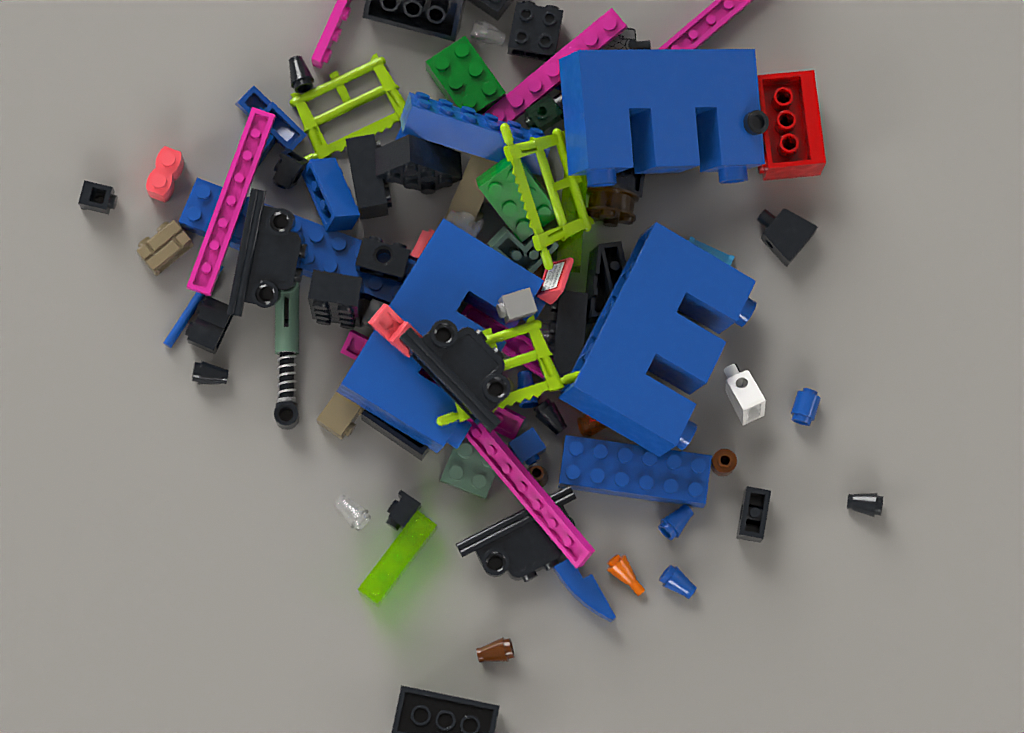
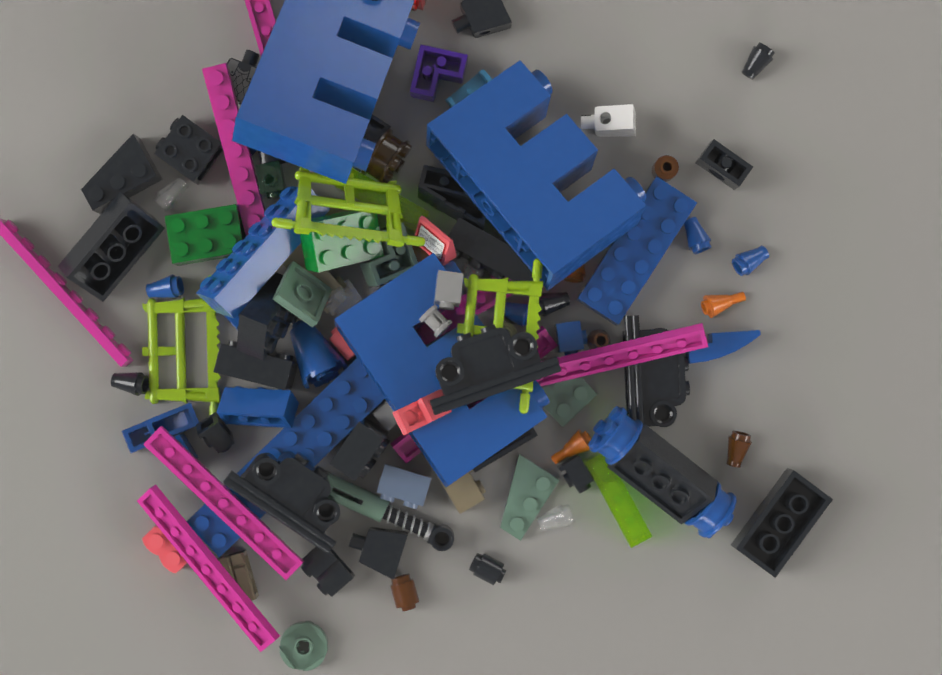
camera: 55 degrees left, 10 degrees up
(91, 192) = (155, 624): black brick -> none
(133, 349) = (301, 659): none -> sand green plate
(164, 215) = (208, 568): none -> dark pink plate
(184, 318) = (310, 589): blue bar -> none
(209, 374) = (371, 590): black cone -> none
(220, 404) = (404, 592): none -> reddish brown brick
(250, 365) = (380, 549): none -> black torso
(276, 470) = (487, 568): none -> black brick
(318, 357) = (404, 486): none -> sand blue brick
(359, 477) = (526, 497): none -> sand green wing
(394, 269) = (356, 382): black brick -> none
(401, 68) = (166, 288): none -> blue cone
(402, 221) = (315, 356): none -> blue cone
(431, 501) = (577, 444): none -> orange cone
(440, 583) = (662, 473): none -> black brick
(452, 184) = (302, 294): none -> sand green plate
(483, 306) = (435, 320): none -> light grey bush
(713, 209) = (435, 65): none -> dark purple brick
(805, 406) = (647, 72): blue brick -> none

